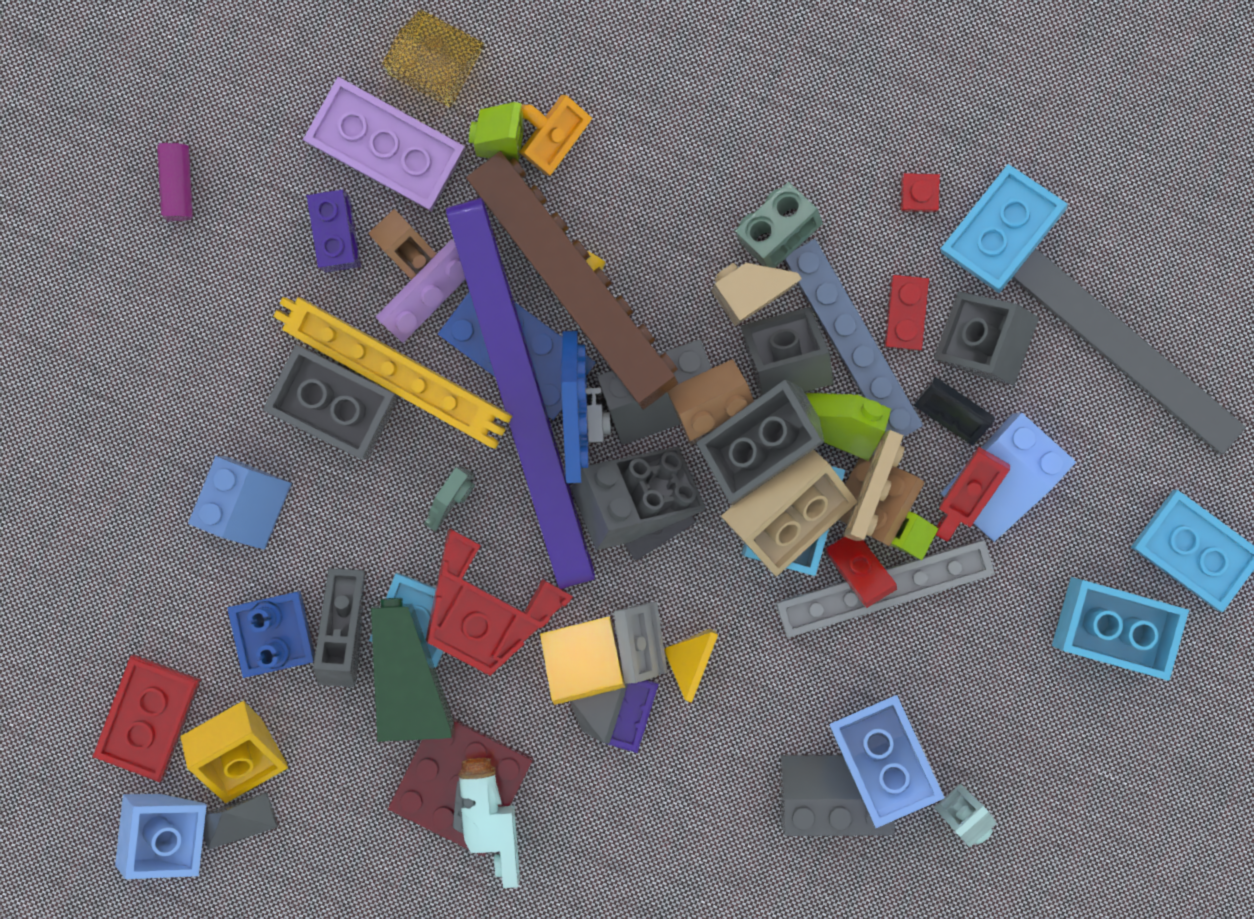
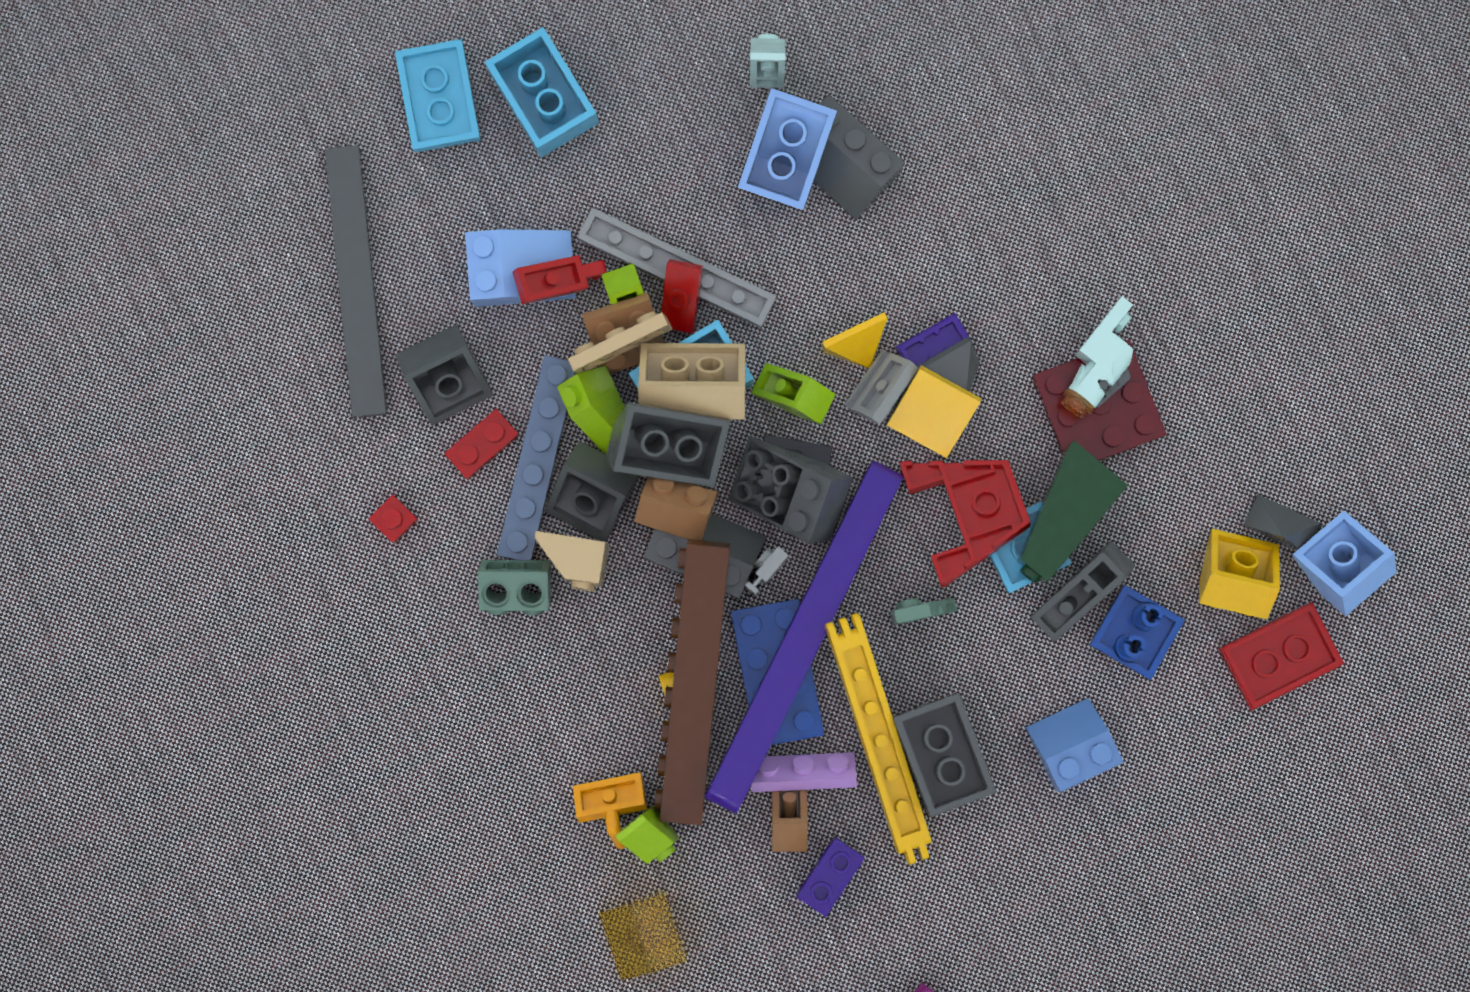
camera: 125 degrees left, 5 degrees down
(384, 144) = (736, 906): lavender plate -> none
(574, 406) = (774, 588): blue plate -> none
(703, 574) = (793, 393): none -> lime slope
(954, 411) = (514, 345): black plate -> none
(1004, 228) = (360, 439): medium azure plate -> none

